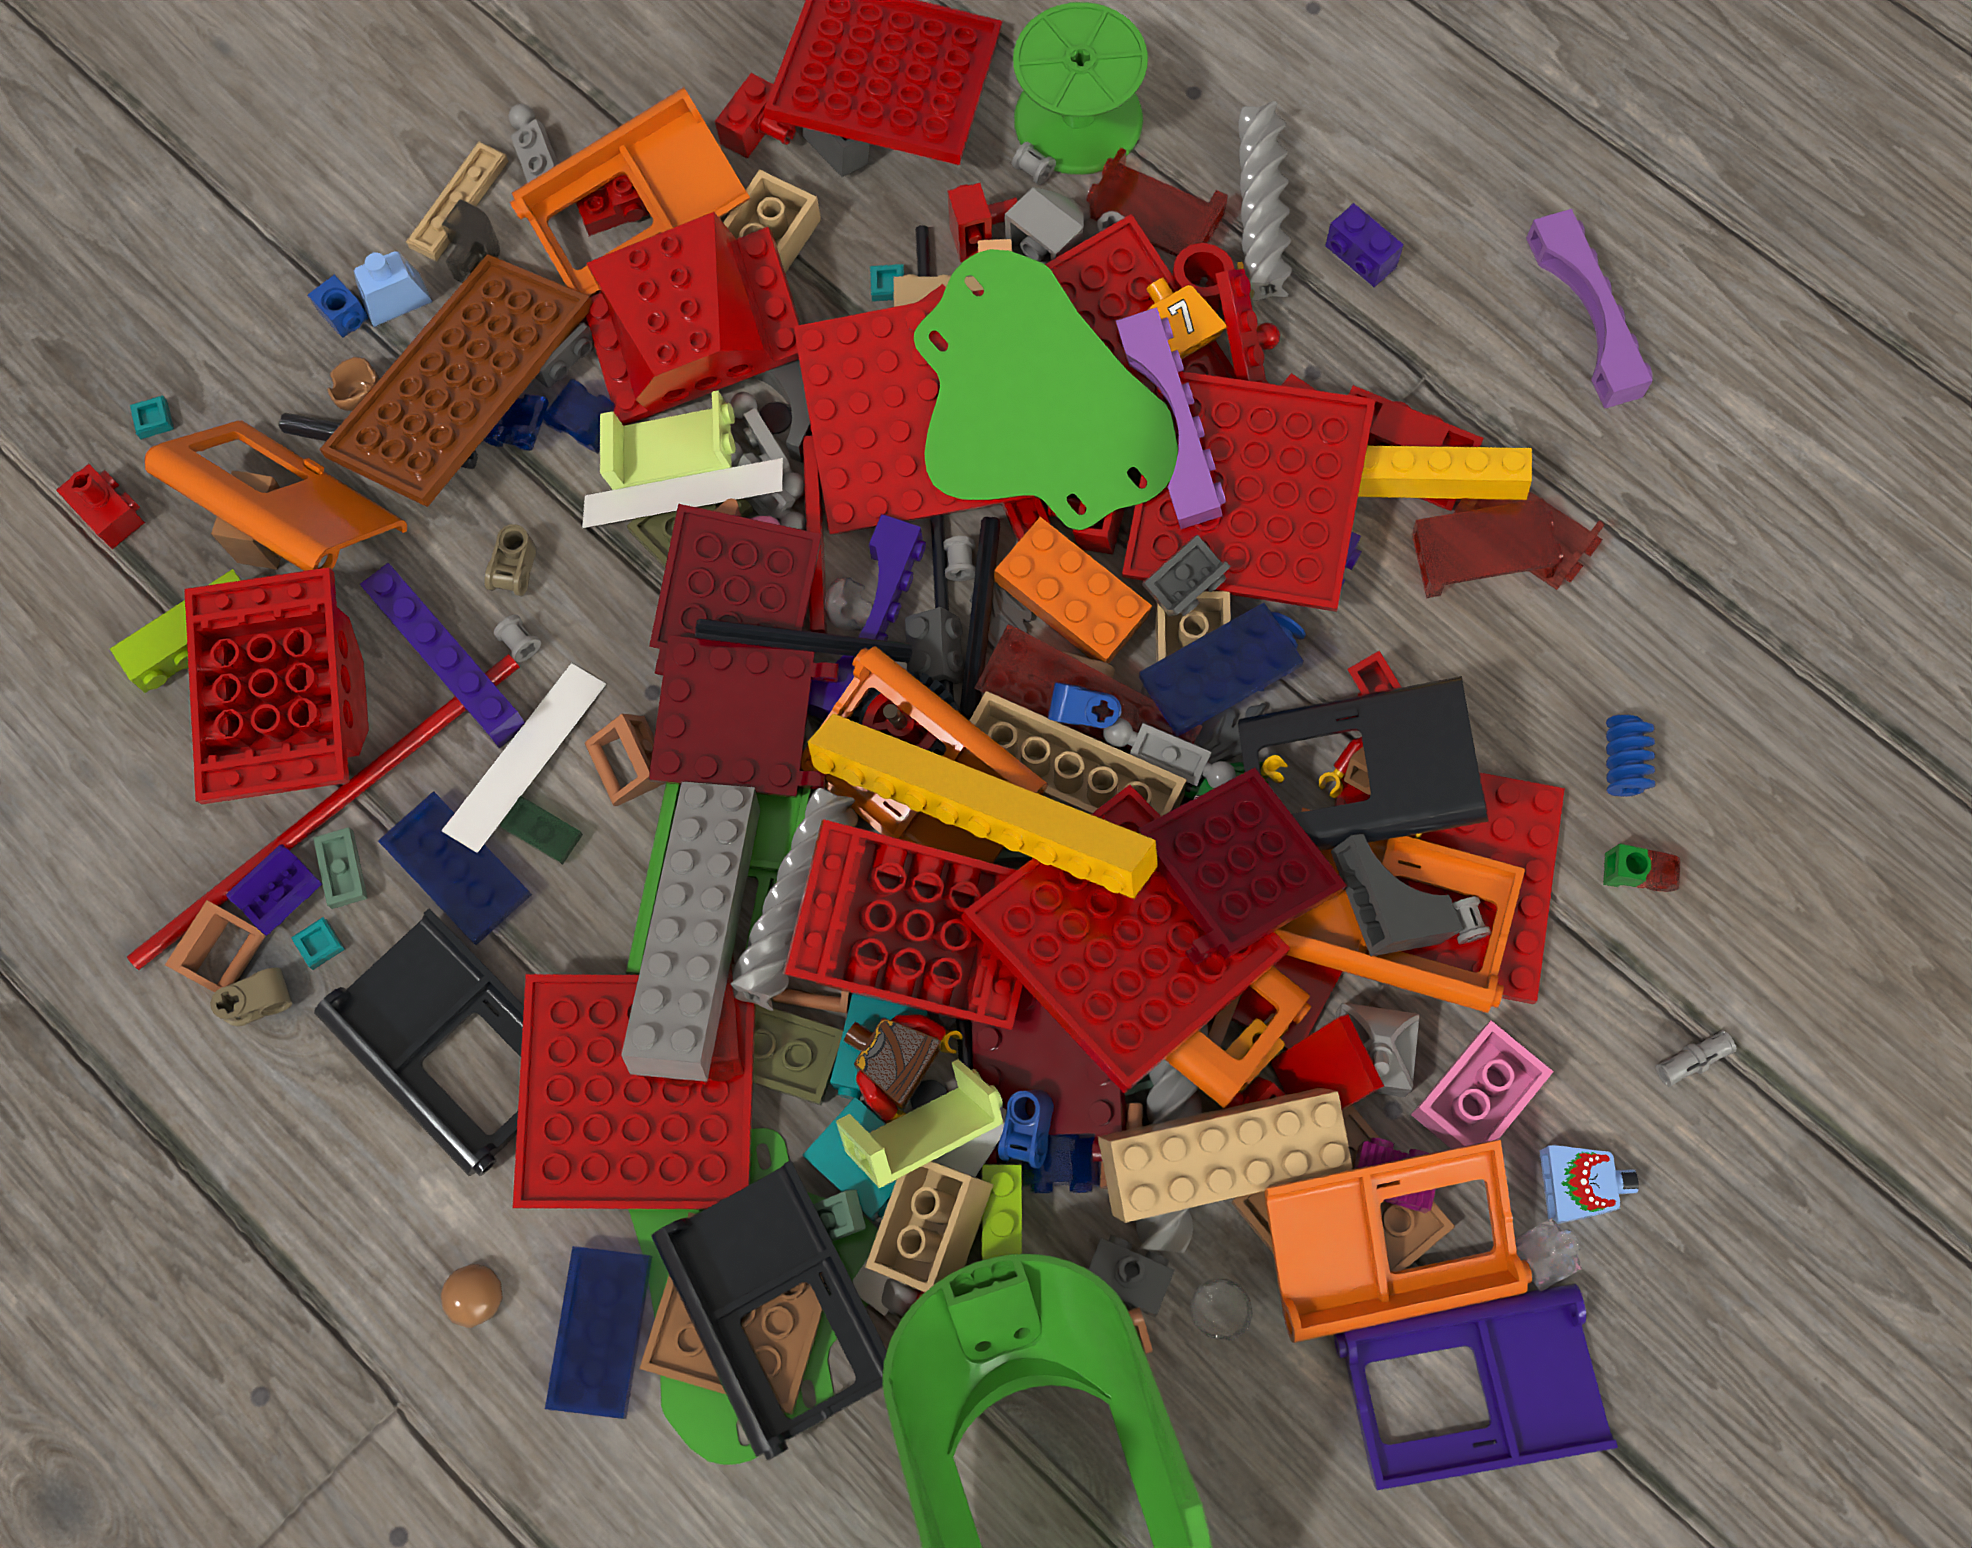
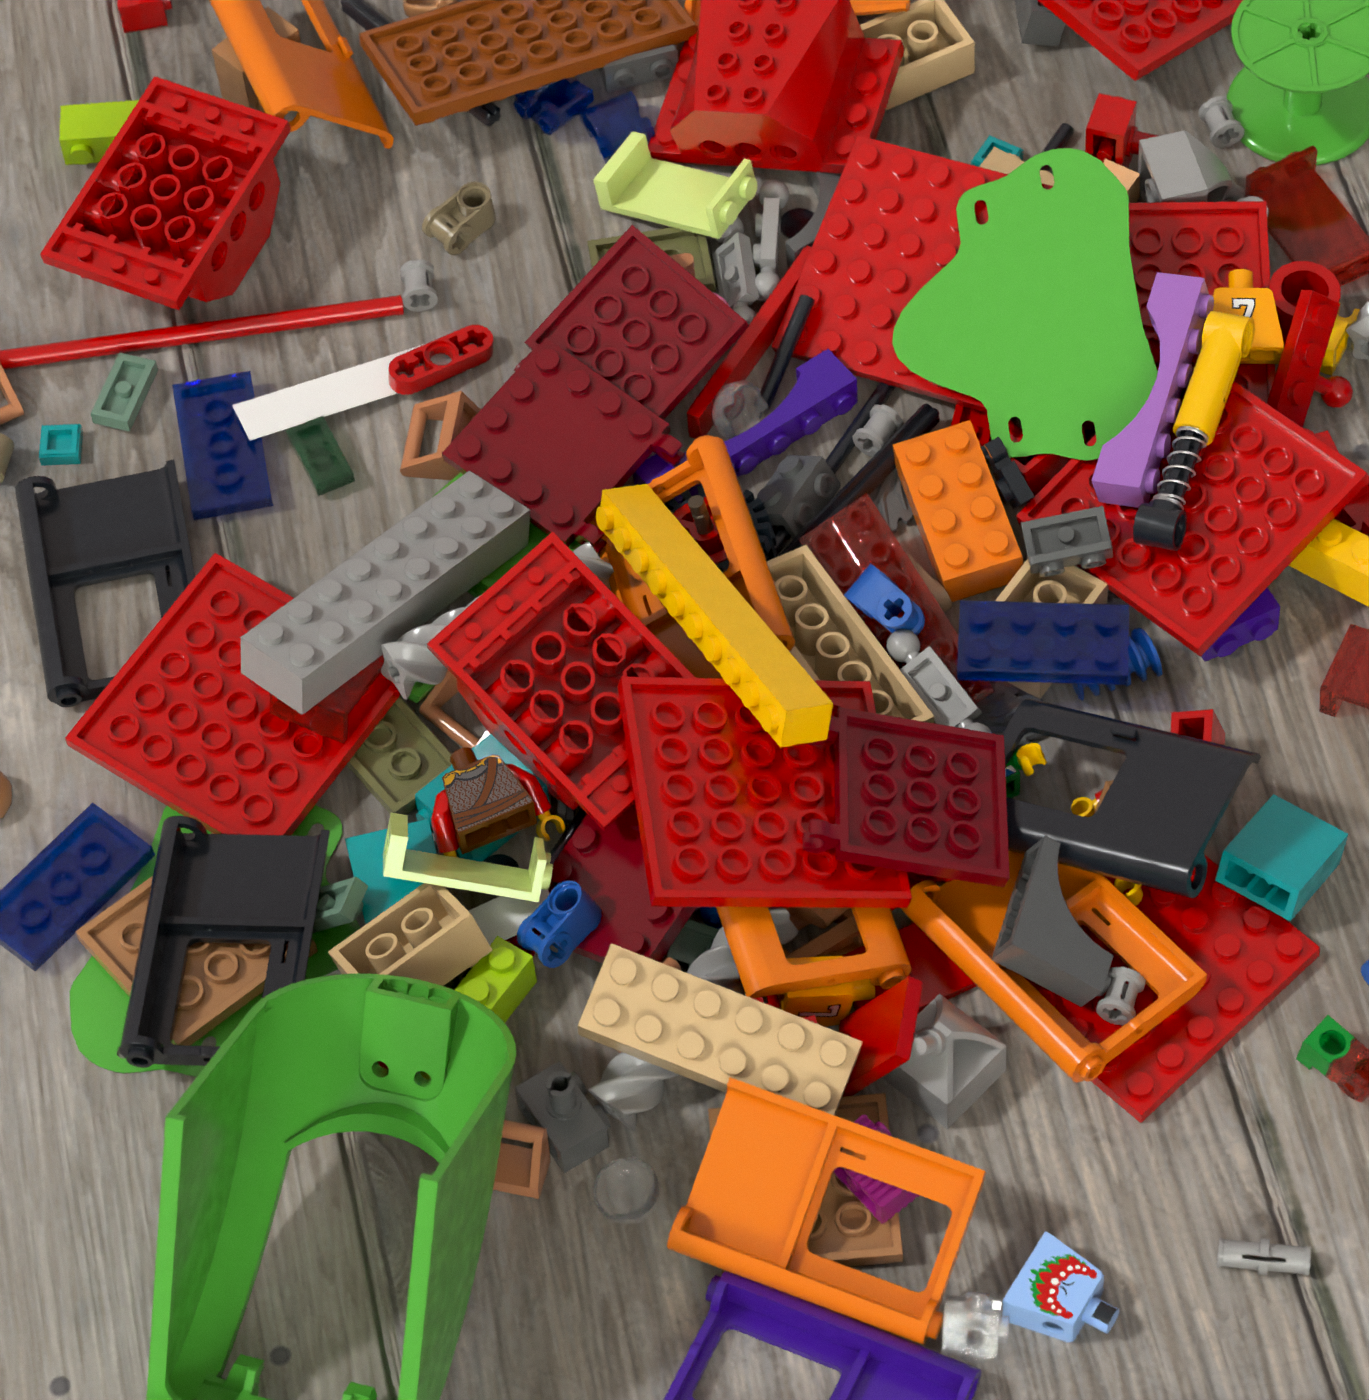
camera: 35 degrees right, 15 degrees down
(274, 889) = (55, 376): dark purple bracket -> none
(443, 655) = (341, 263): dark purple arch -> none
(579, 707) = (431, 373): none -> red beam
(688, 490) = (672, 240): white sticker -> none
(797, 639) = (660, 404): black axle -> none
(847, 530) = (786, 348): none -> black bar
(1066, 1163) = (566, 986): clear blue cylinder -> none
(1096, 545) = (1010, 481): none -> black plate
(1223, 430) = (1224, 344): none -> piece
(1482, 1090) = (1027, 1147): bright pink brick -> none
(1505, 734) = (1281, 857): none -> teal brick

